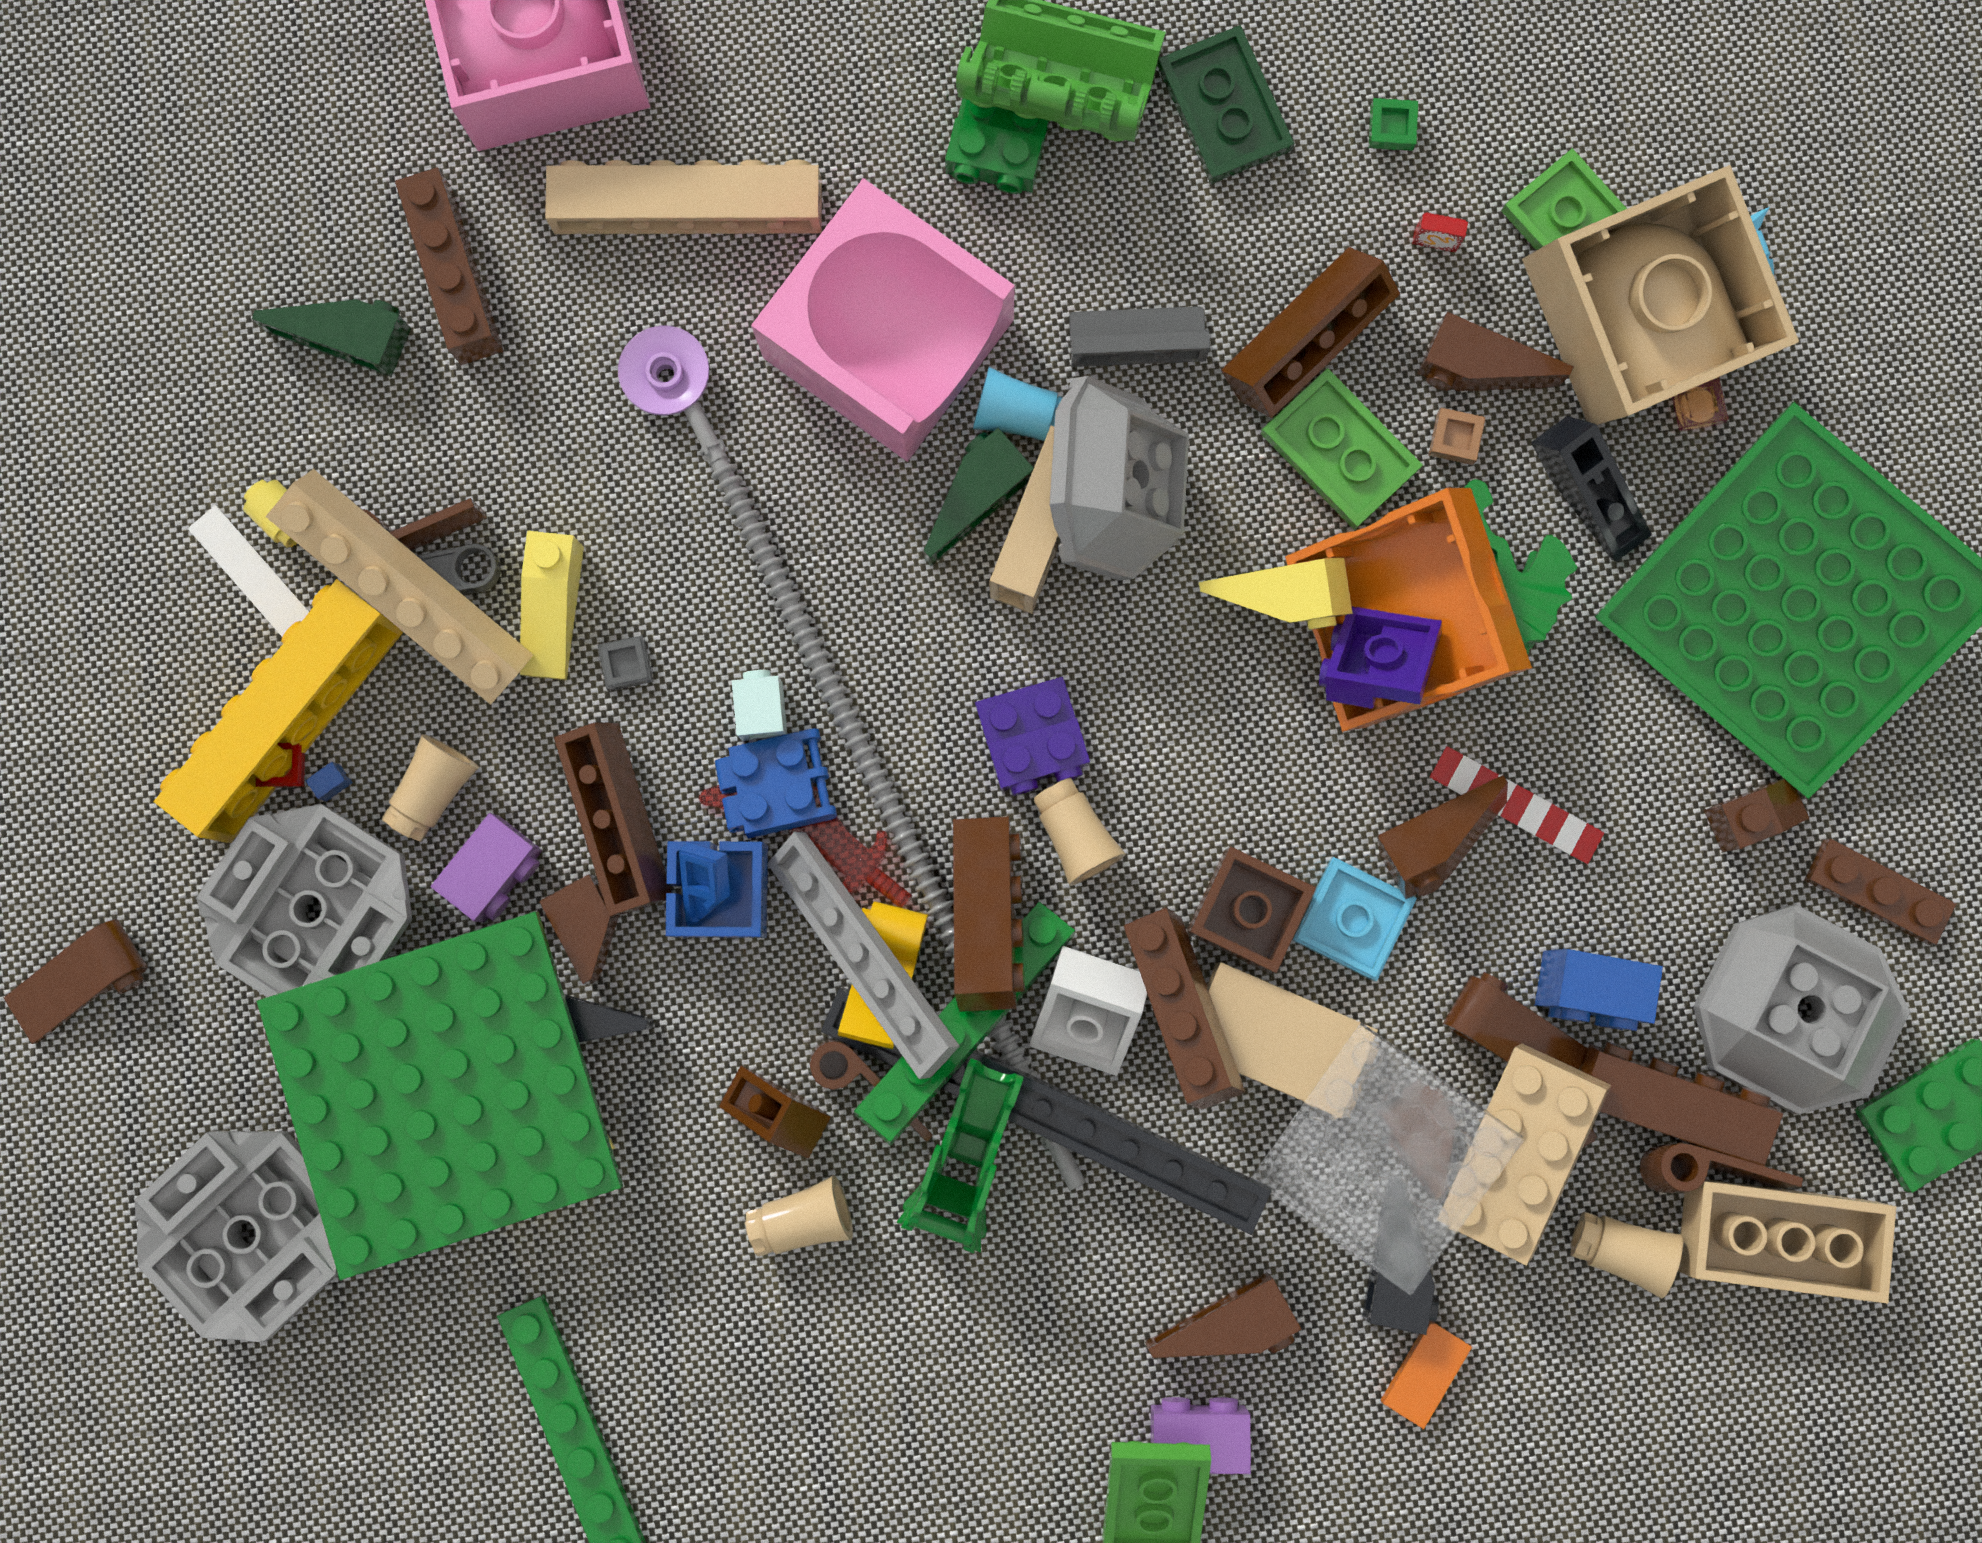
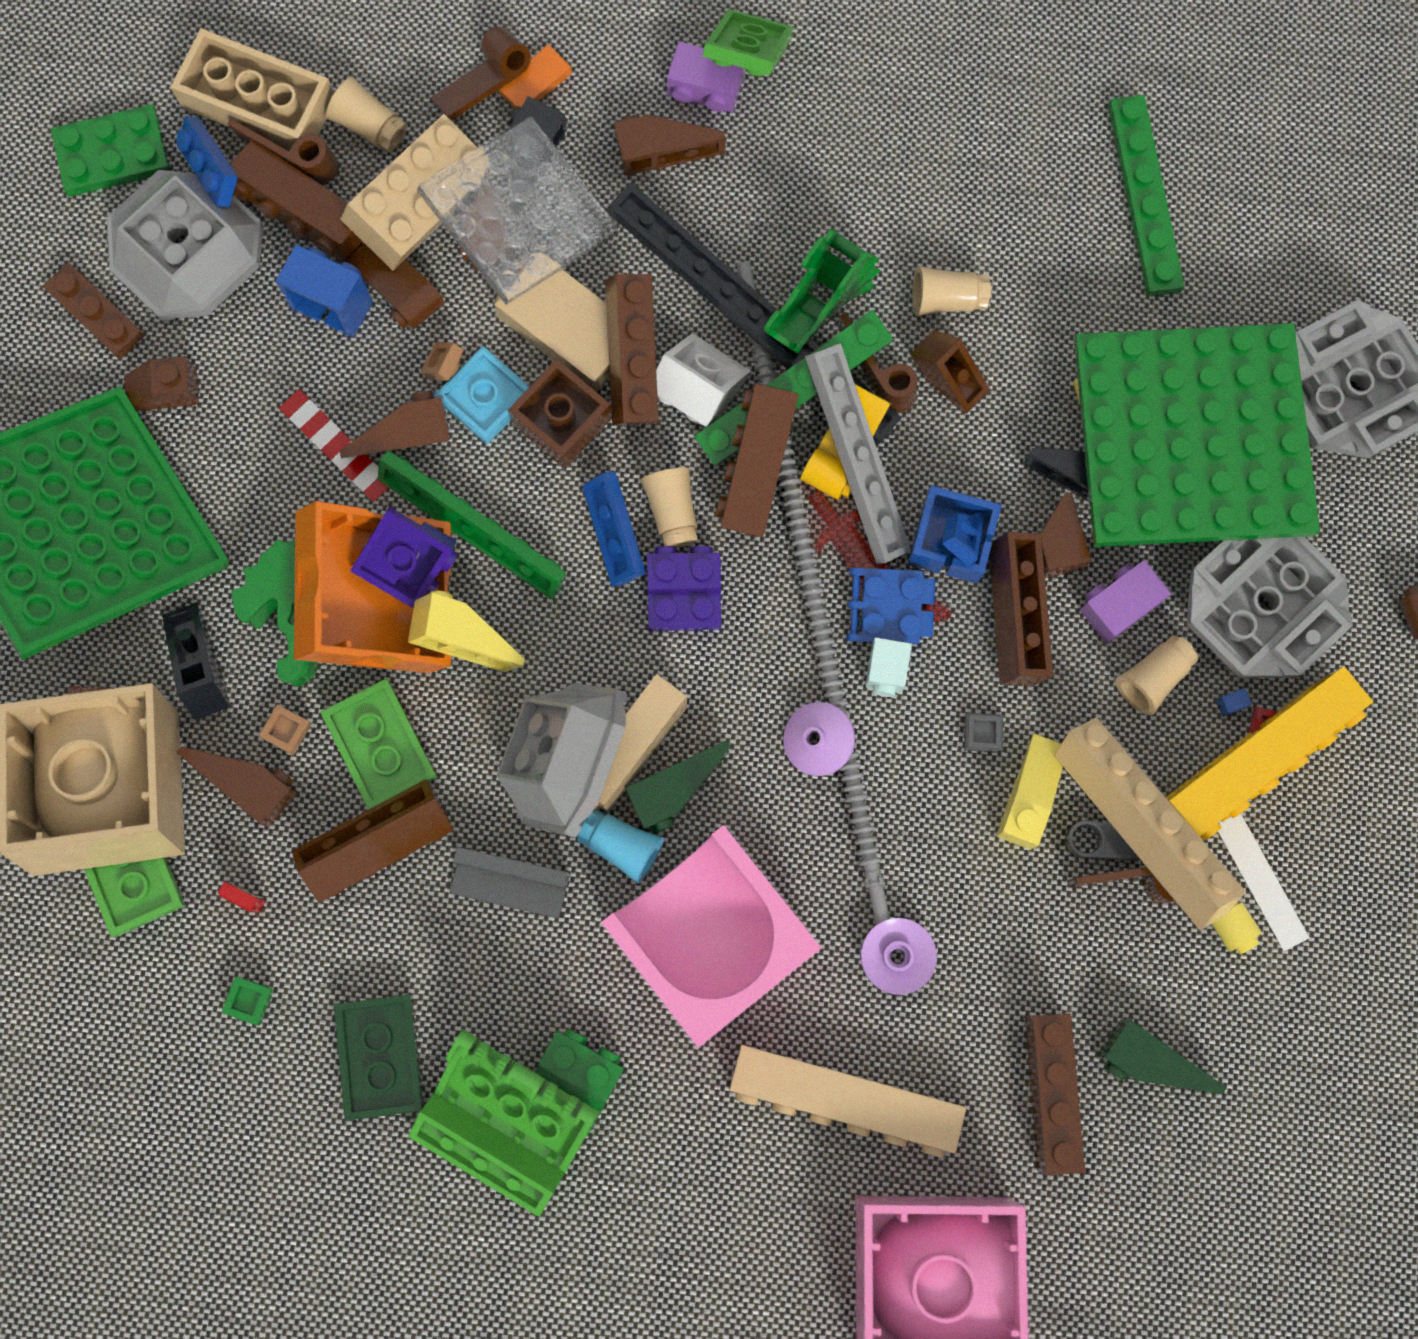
camera: 170 degrees left, 5 degrees down
(810, 612) = (835, 741): none -> lavender dish
(1140, 786) = (613, 529): none -> blue plate
(1334, 748) = (471, 525): none -> green plate
(1420, 942) = (442, 361): none -> medium nougat plate
(1475, 1375) = (505, 61): none -> reddish brown door
(1811, 1121) = (207, 161): none -> blue plate

